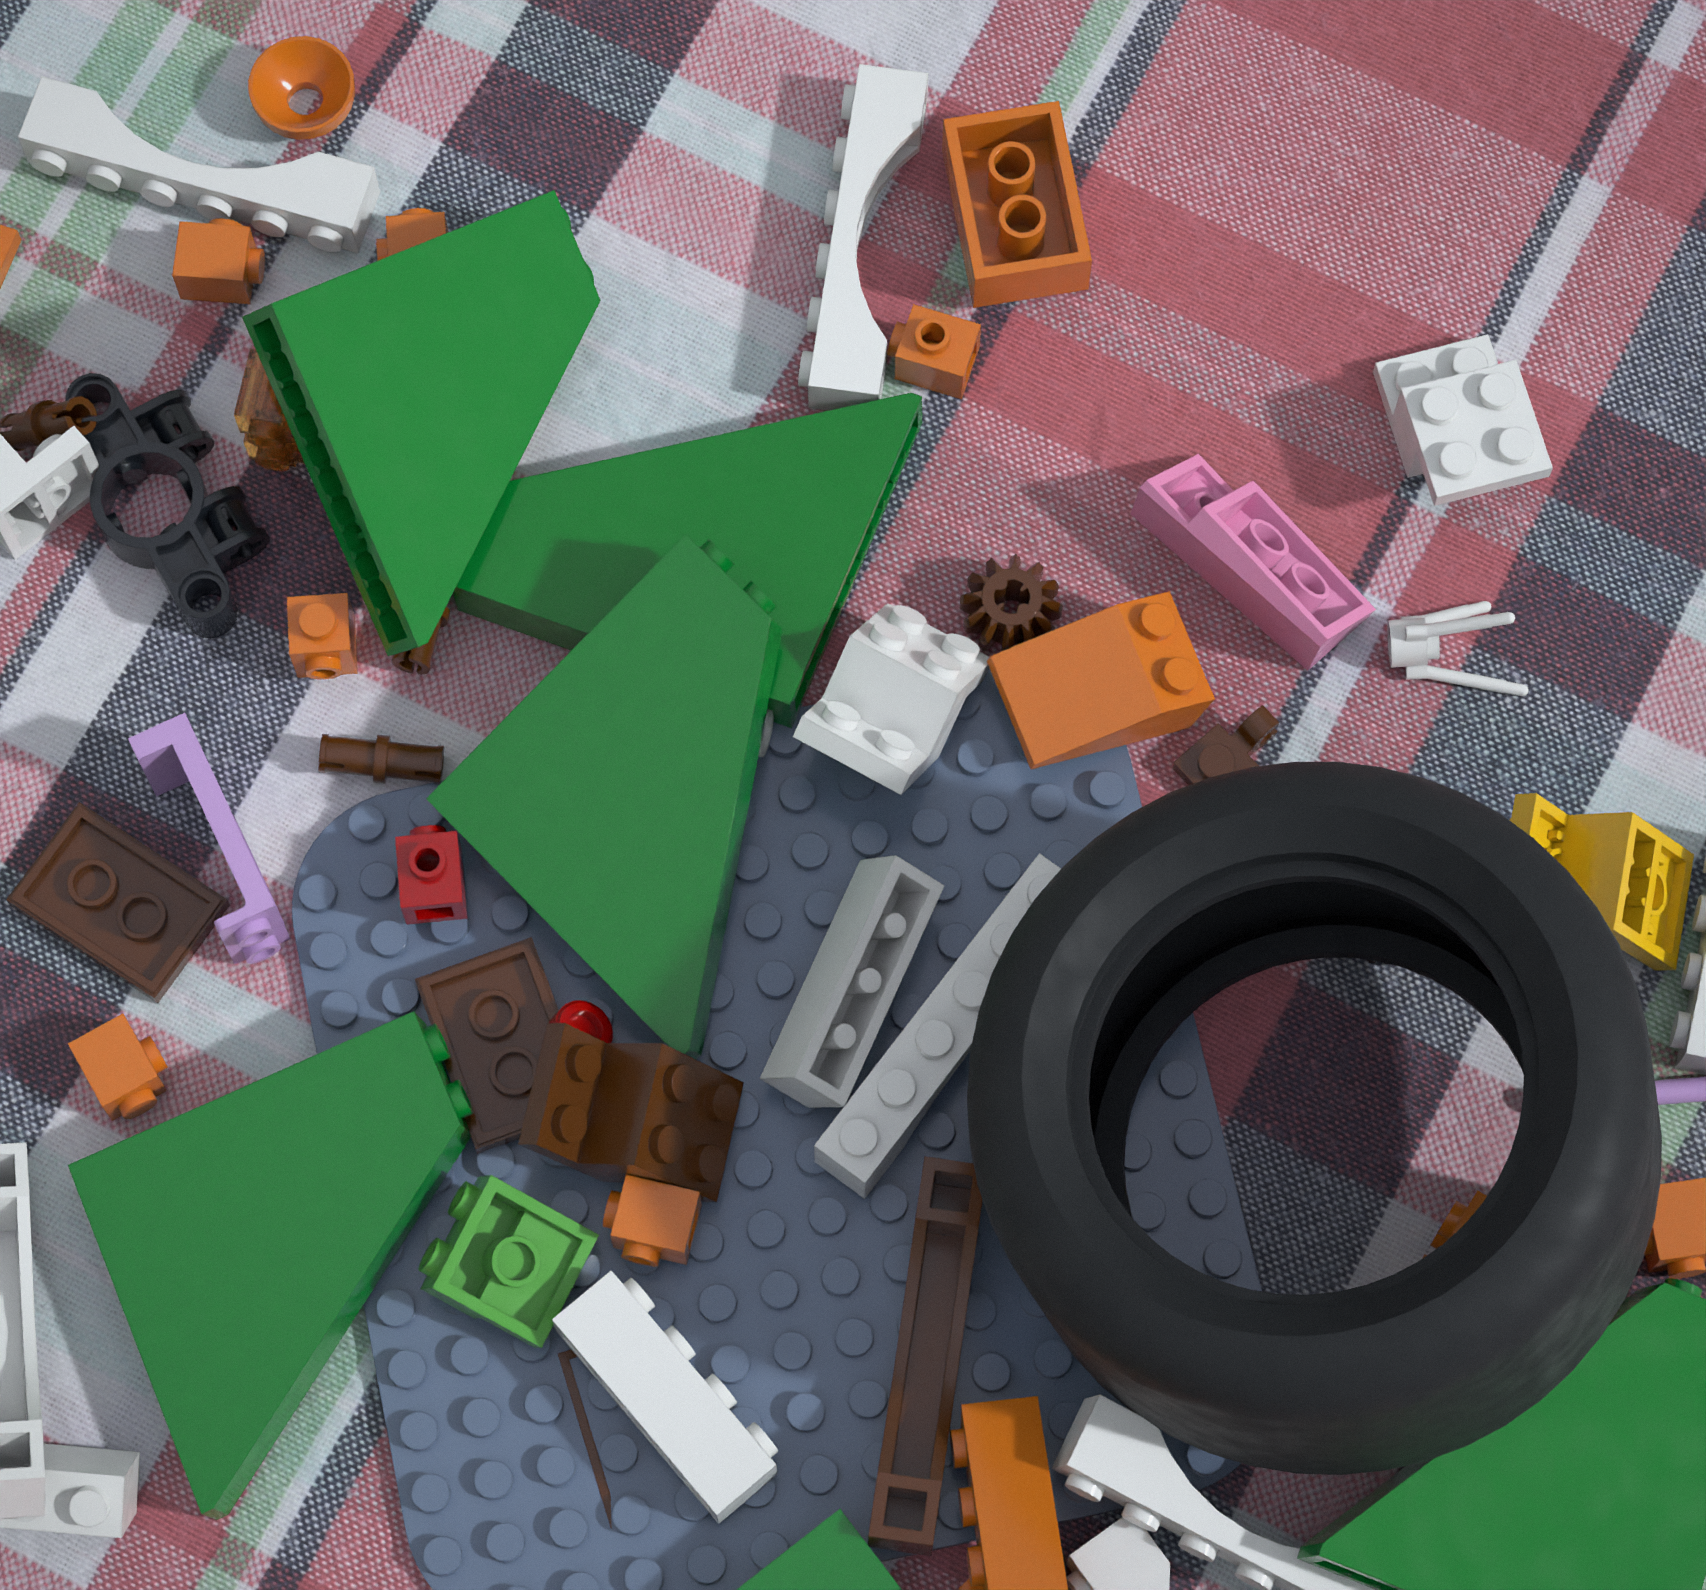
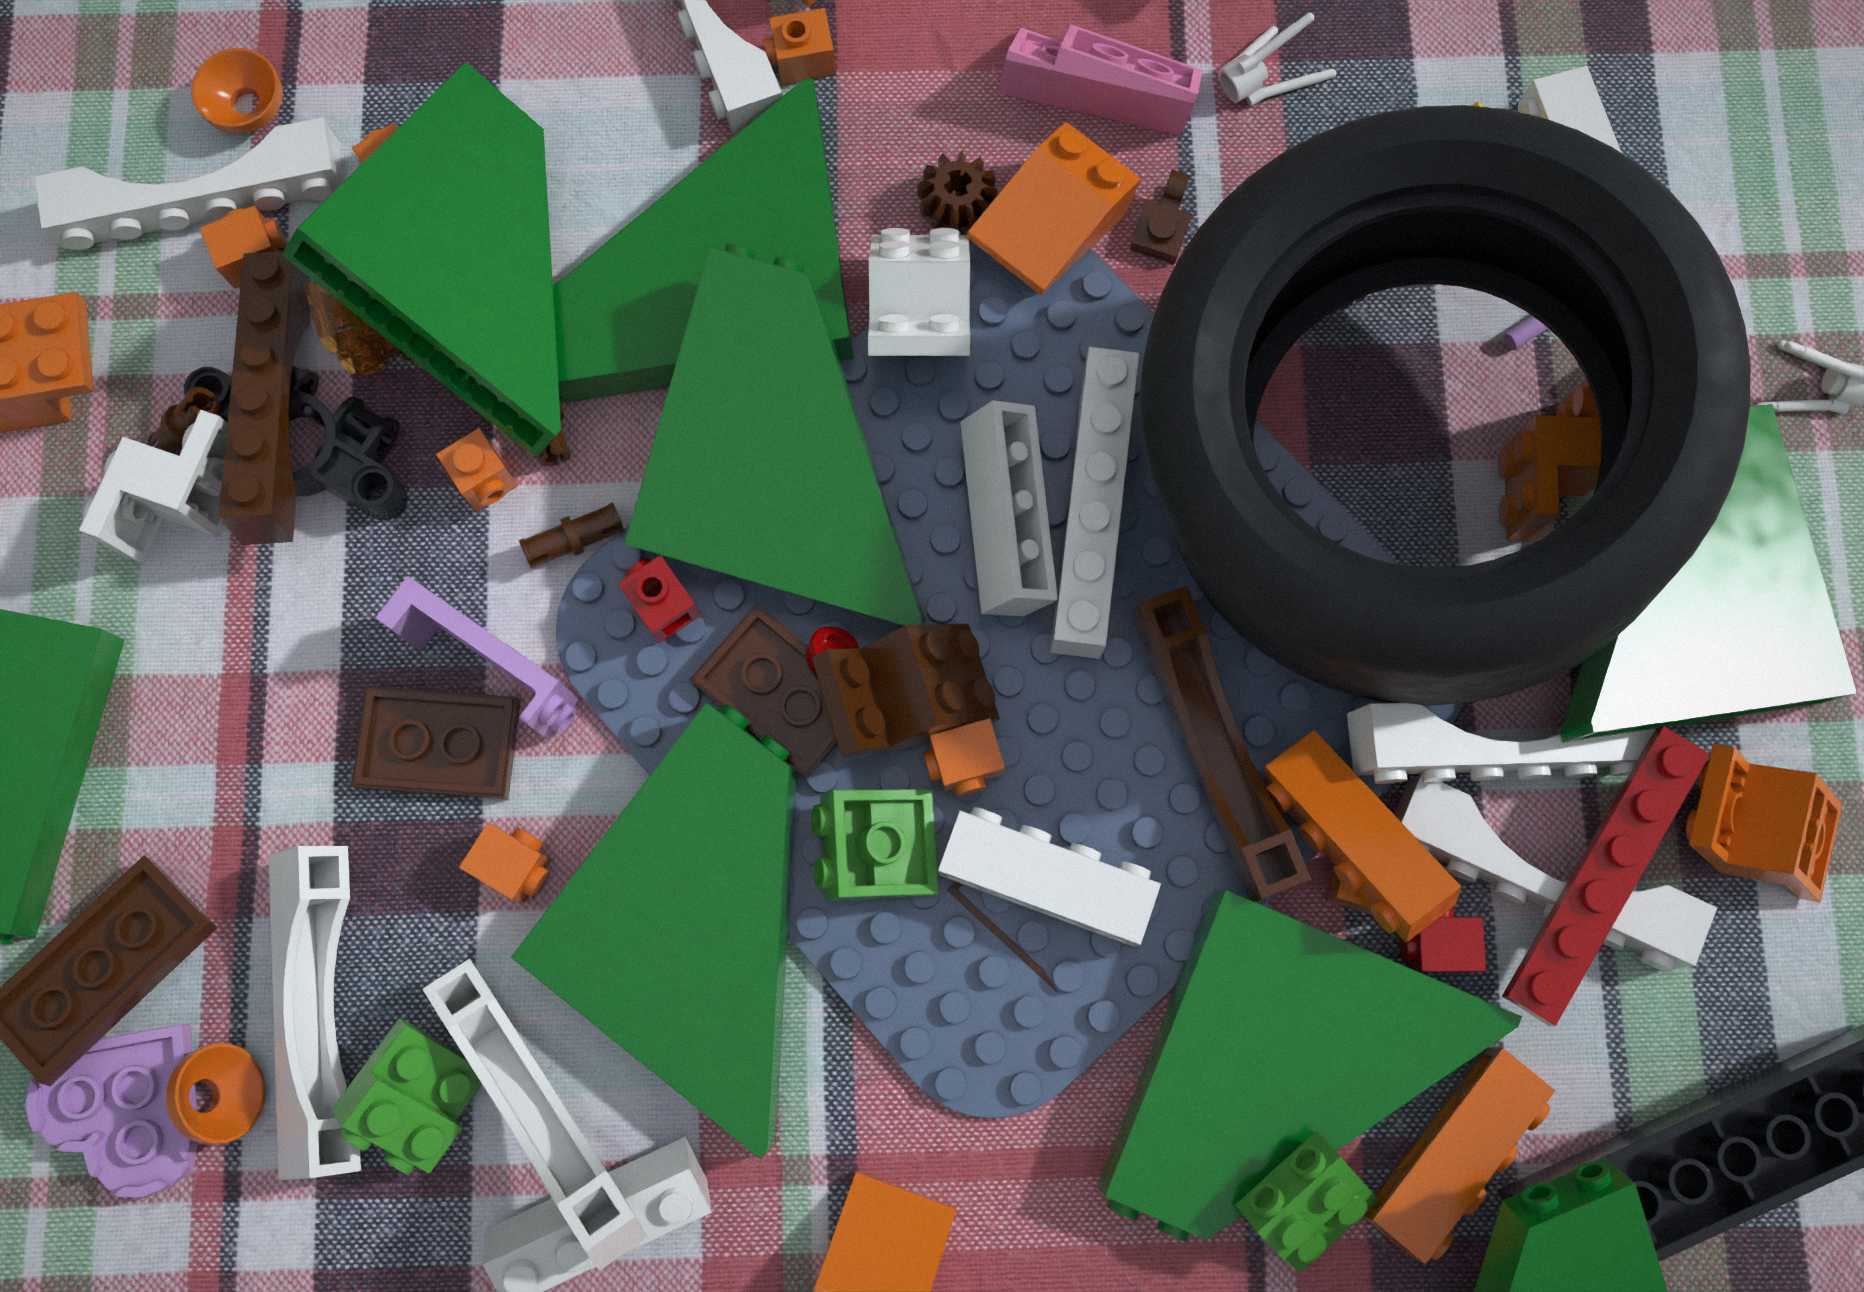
camera: 30 degrees left, 5 degrees up
(99, 512) = (257, 468): none -> reddish brown arch

